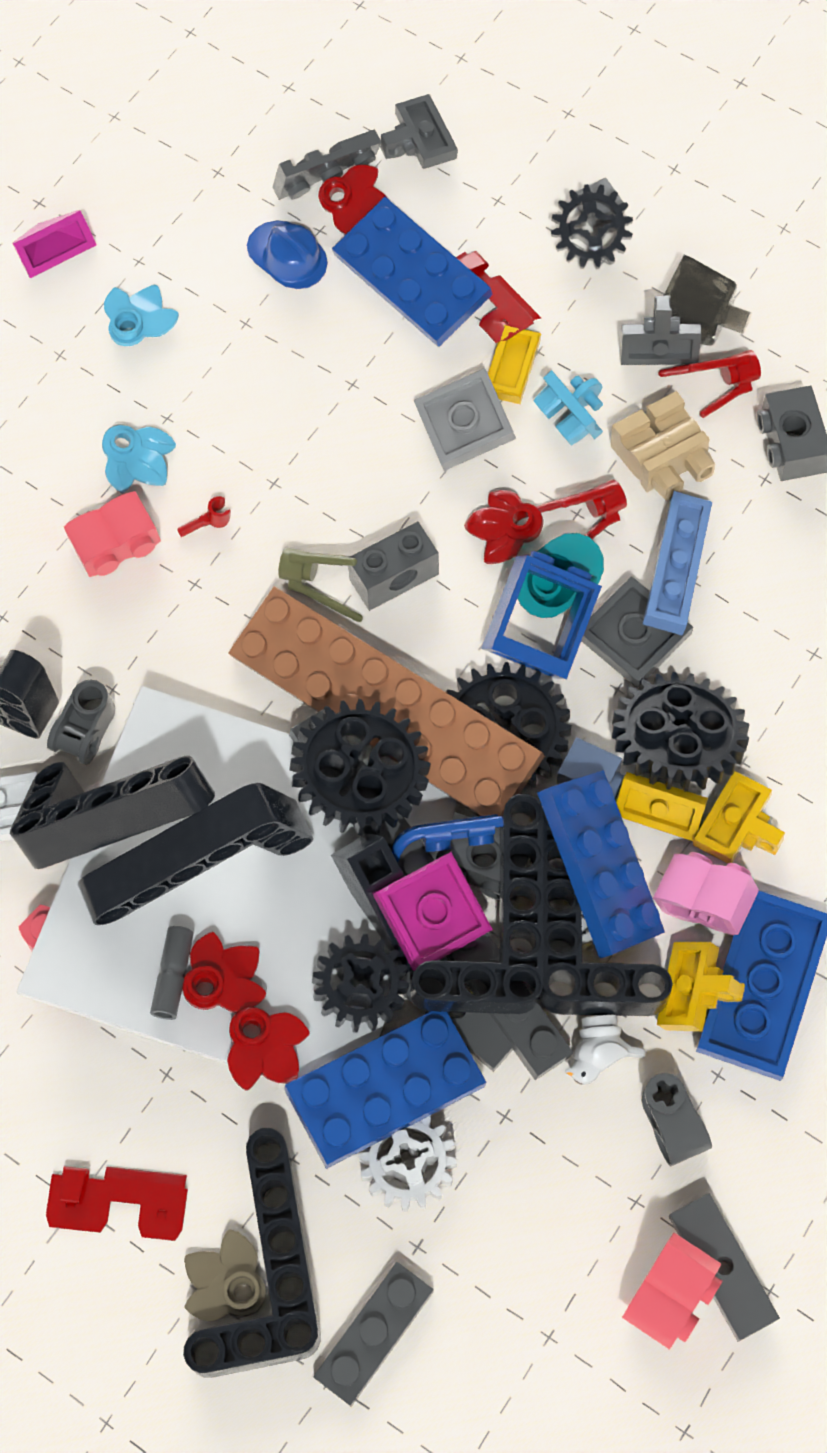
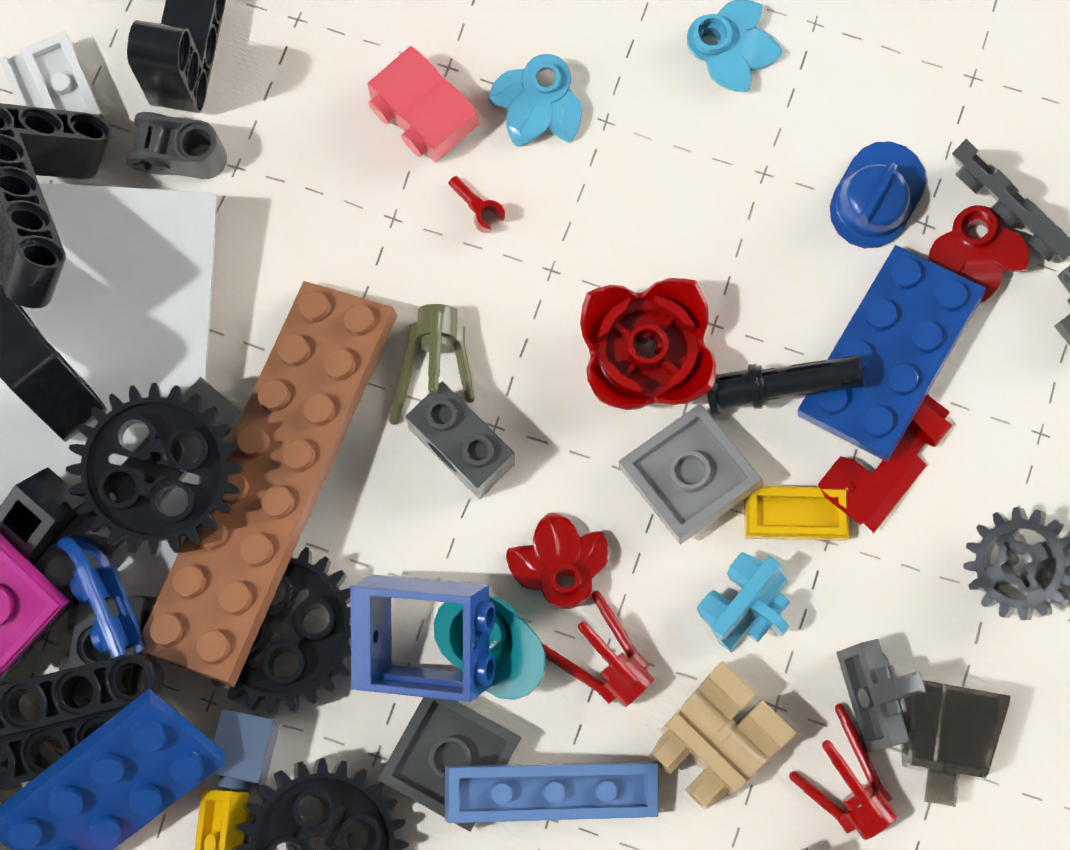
camera: 70 degrees right, 10 degrees up
(345, 401) = (667, 313): none -> red brick
(413, 357) = (760, 385): none -> black pin

